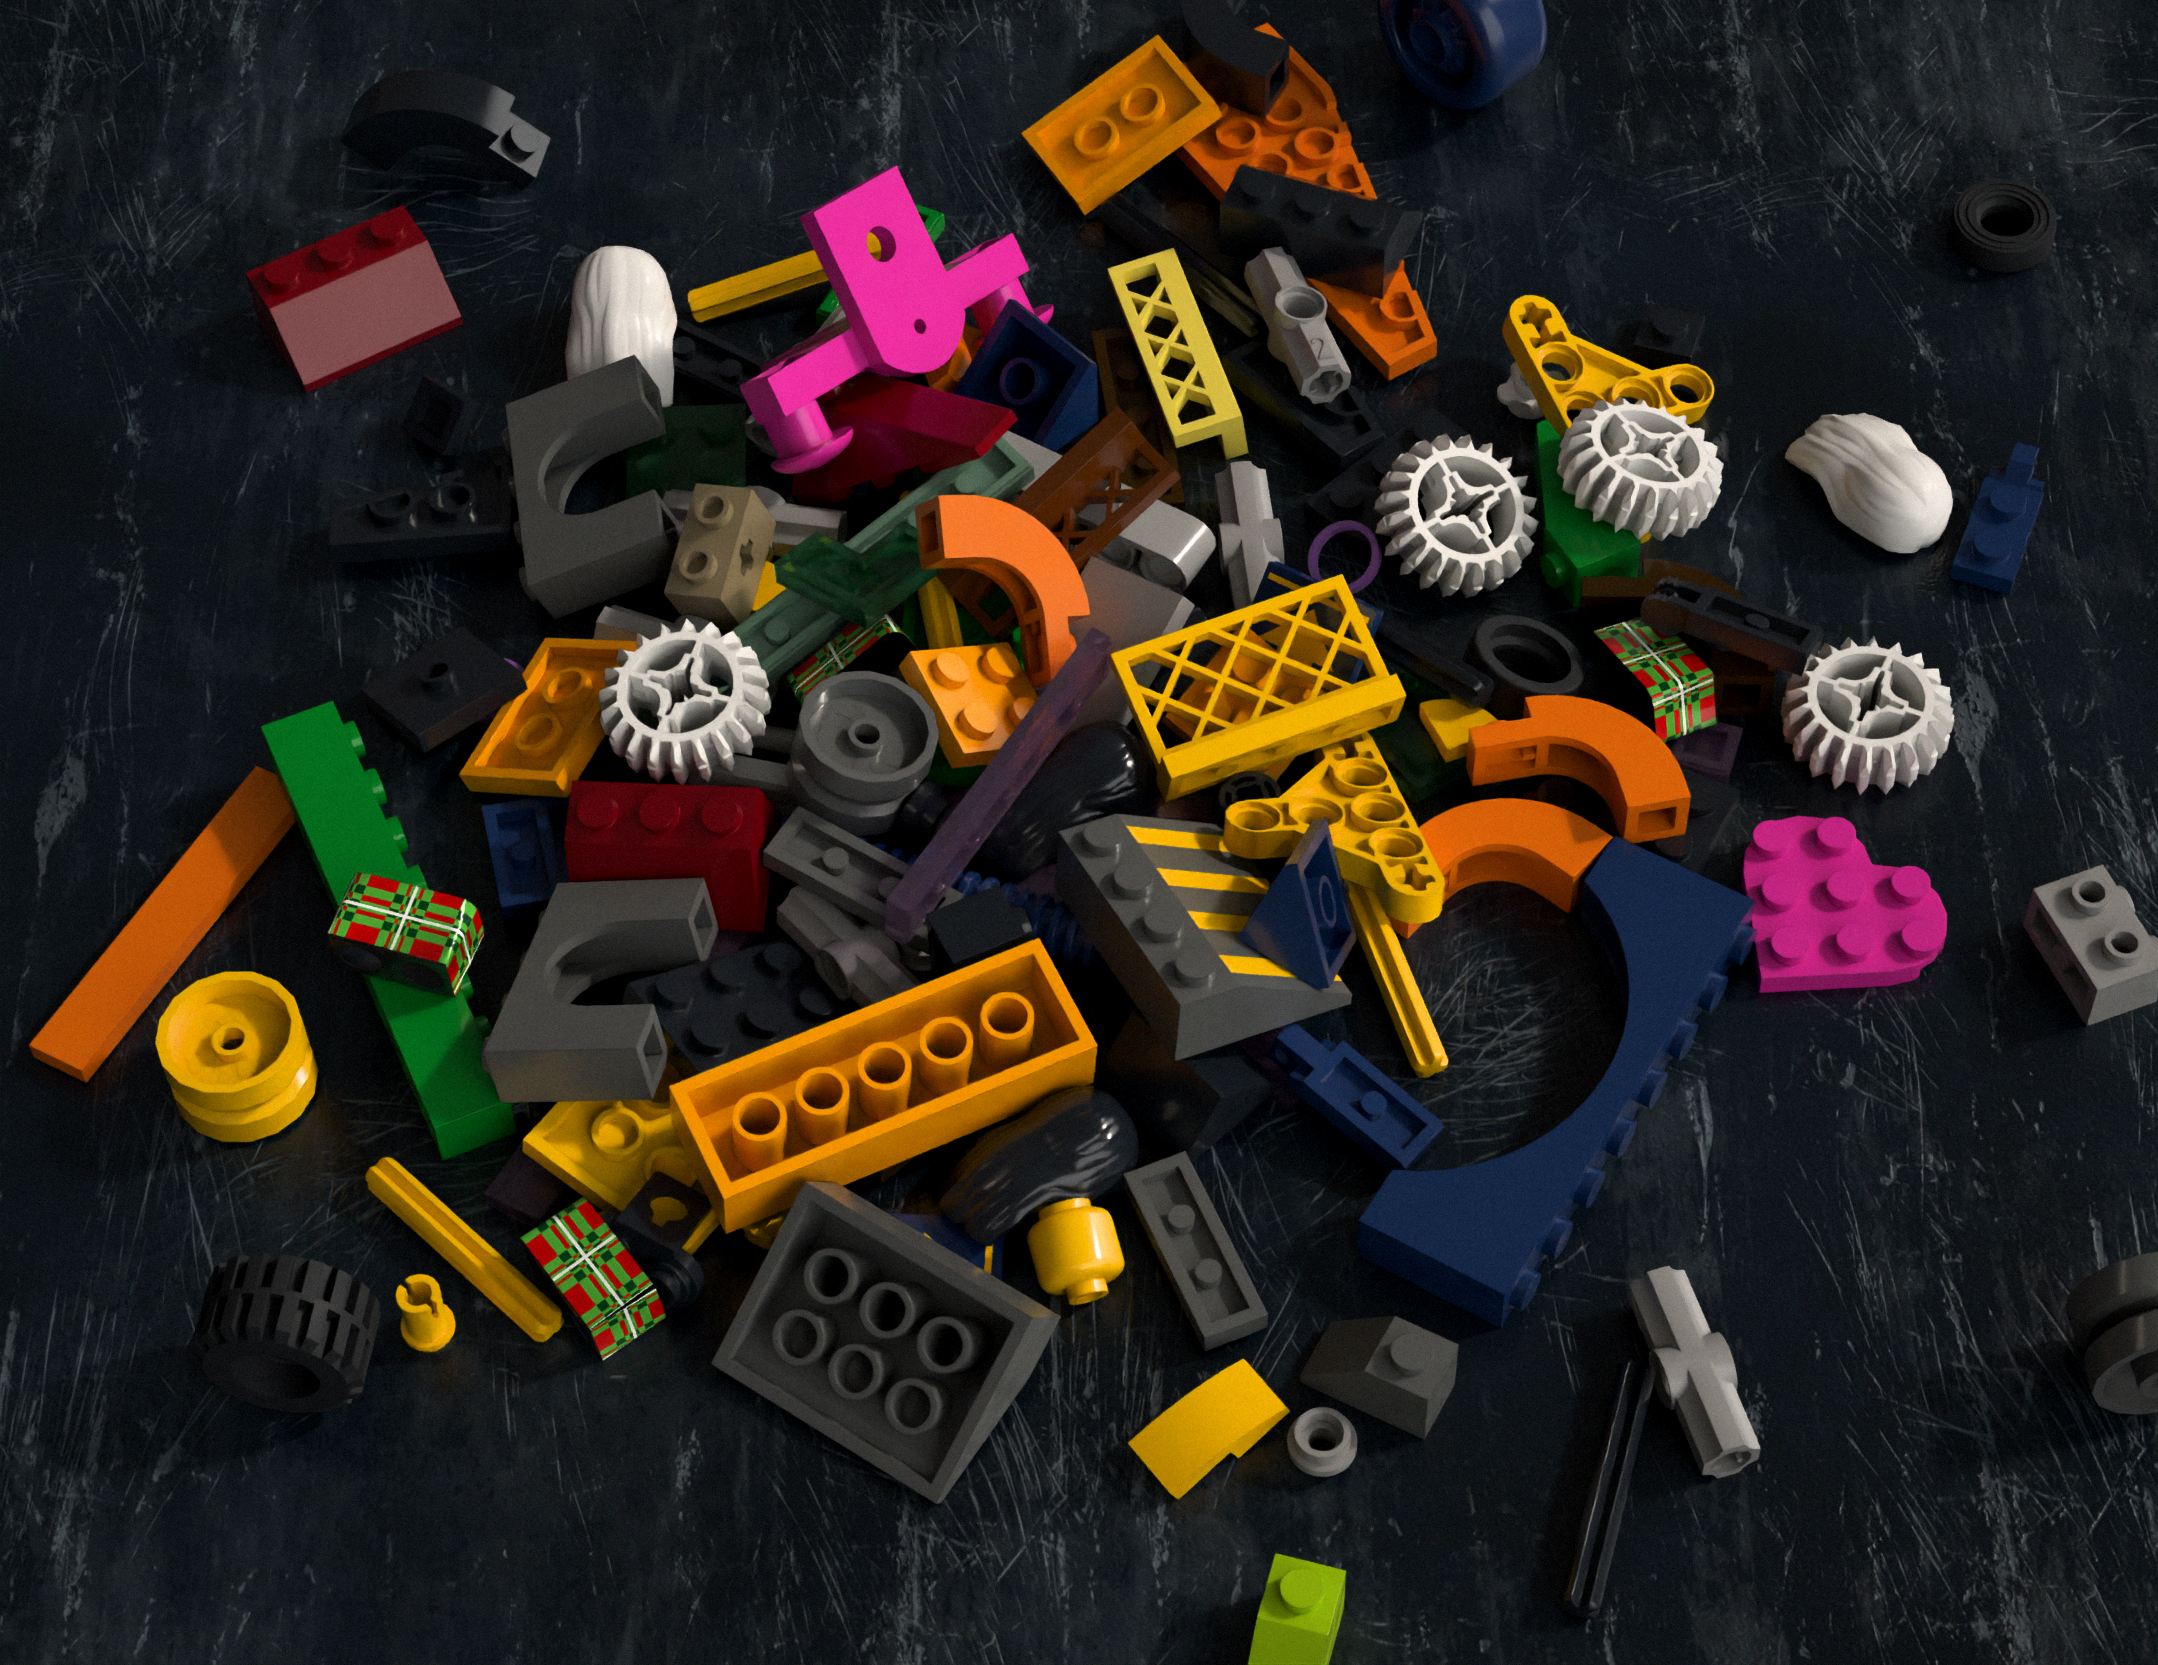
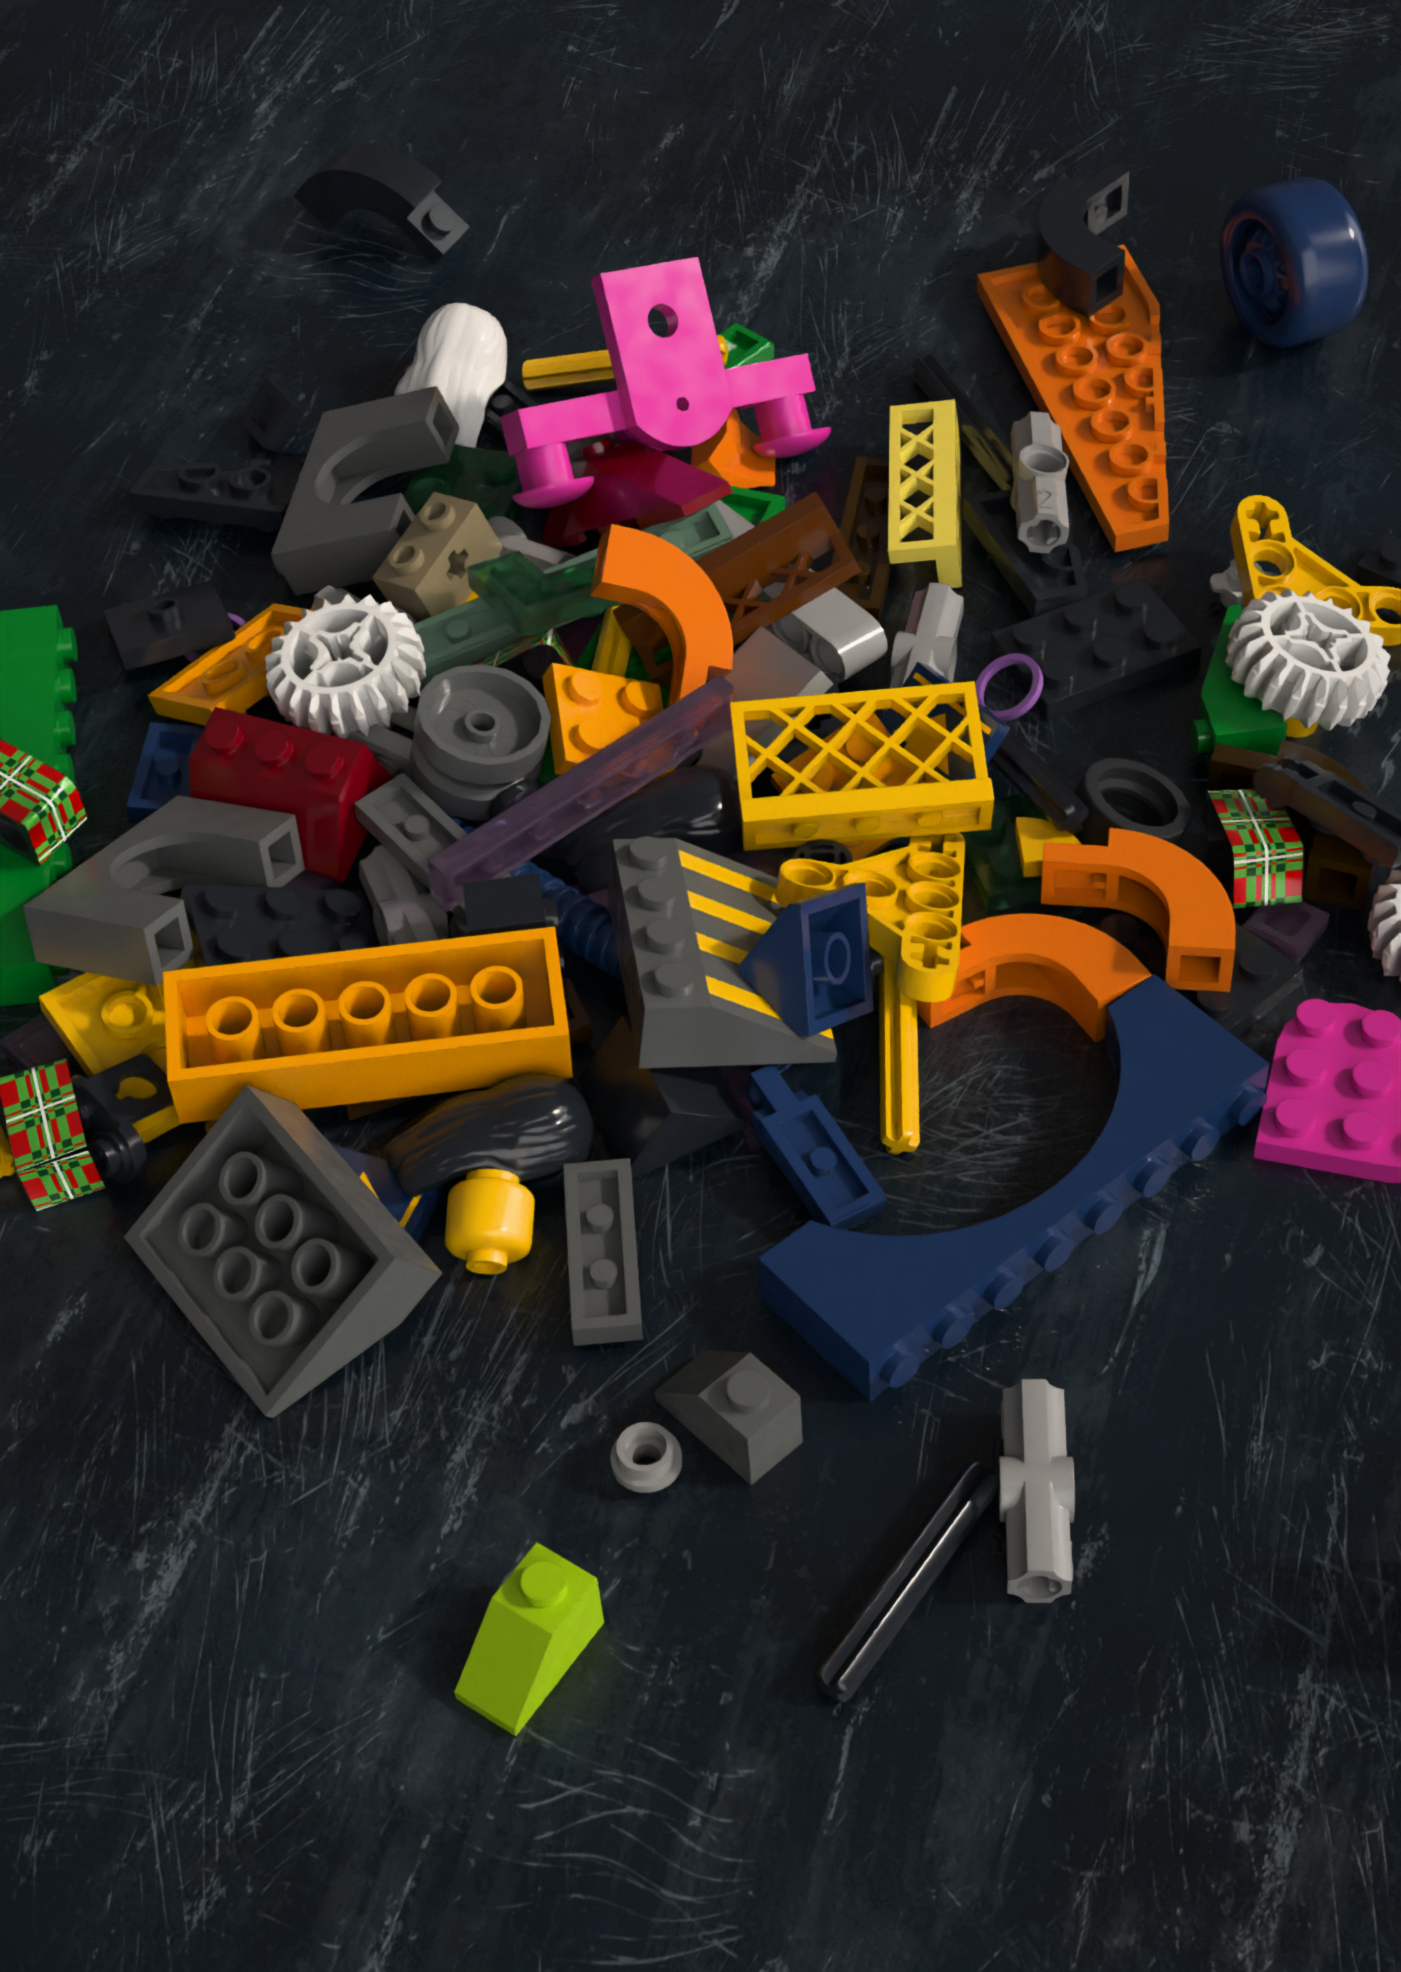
camera: 20 degrees right, 5 degrees down
(353, 298) = (246, 312): dark red slope -> none
(1036, 376) = (773, 468): dark blue slope -> none
(1121, 124) = (956, 298): light orange plate -> none
(1208, 1424) = (553, 1407): yellow slope -> none
(1326, 229) = (1096, 409): black slope -> none
(1453, 483) = (1109, 685): white gear -> none

